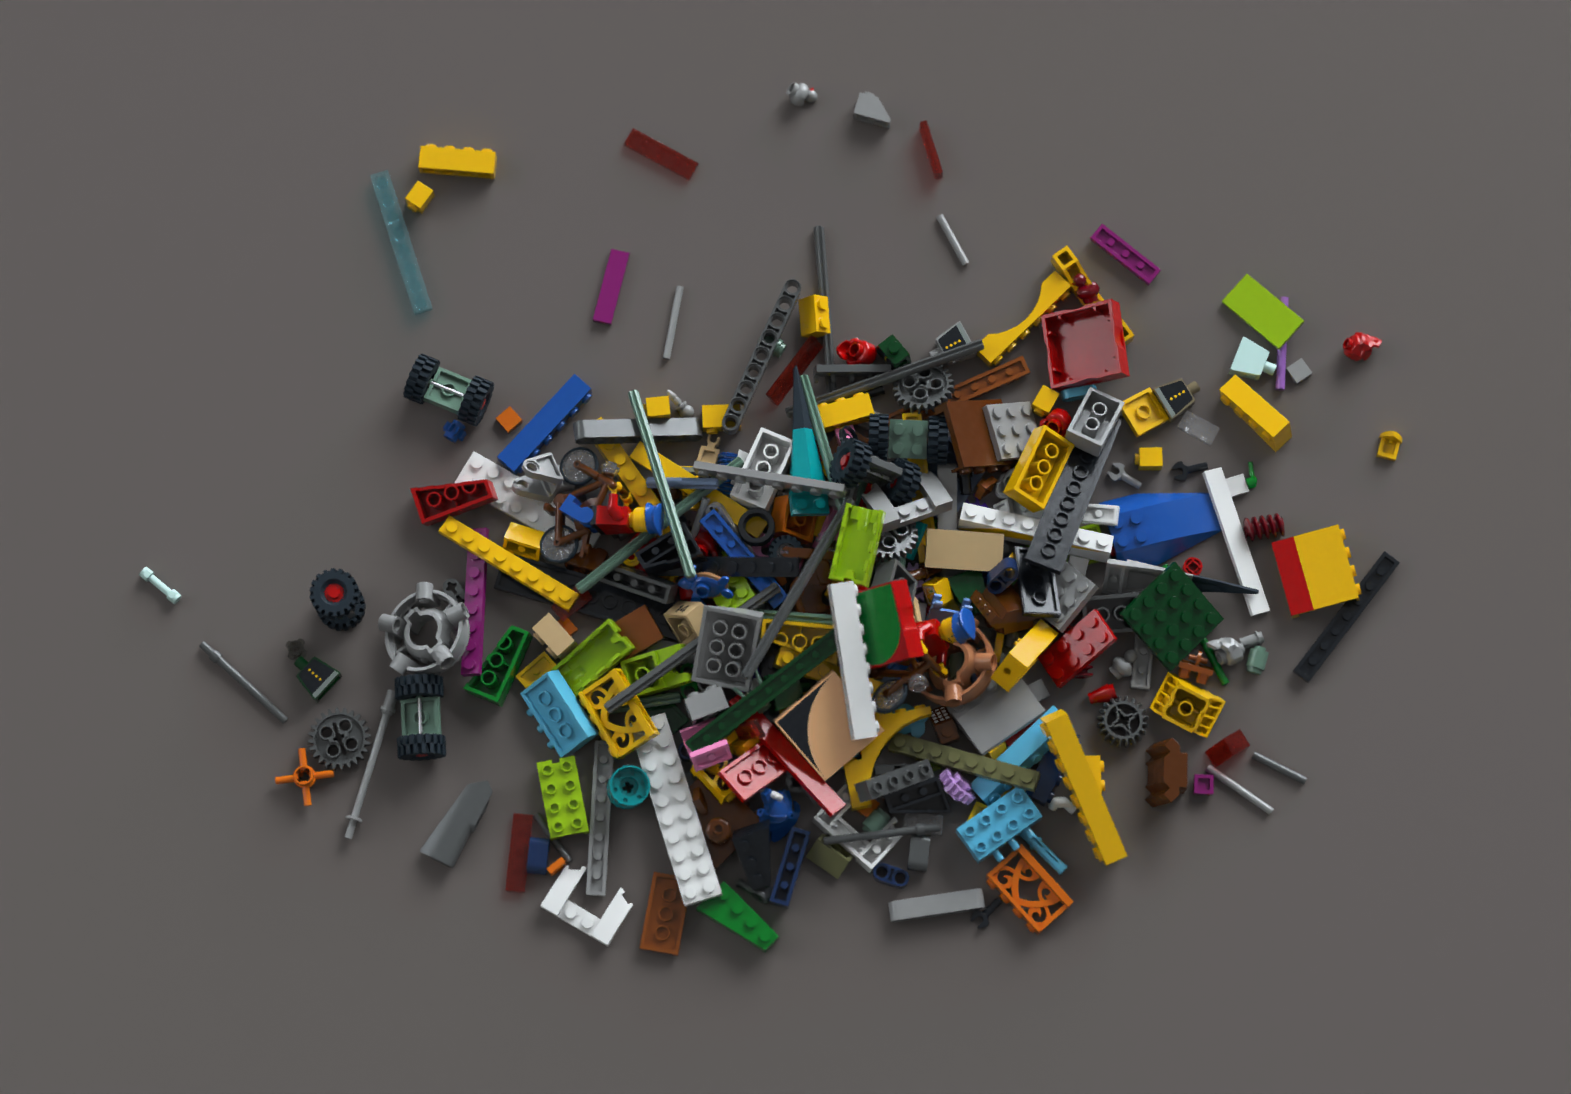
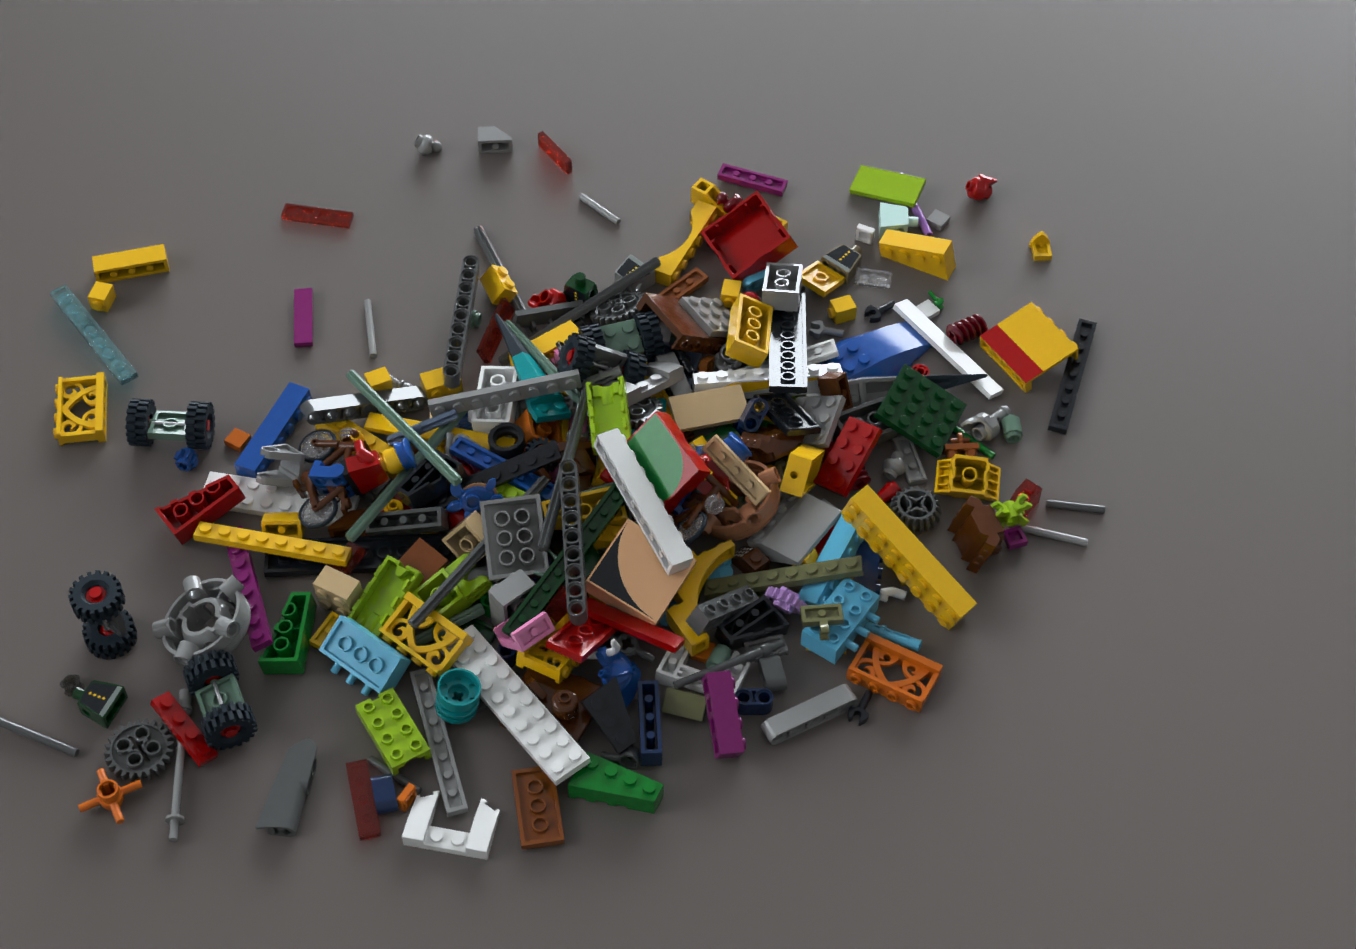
camera: 20 degrees left, 25 degrees down
(379, 358) = (97, 427): none -> yellow fence
(381, 732) = (183, 728): none -> red plate
(776, 690) = (575, 548): none -> dark grey beam
(856, 885) = (723, 714): none -> magenta brick
(875, 485) = (604, 376): none -> light grey pin
(953, 651) = (736, 469): none -> tan tile
(977, 825) = (822, 616): none -> olive plate
(1096, 568) = (835, 384): none -> reddish brown slope
(1205, 765) = (1011, 512): none -> lime pin
(1212, 368) = (865, 234): none -> white tile

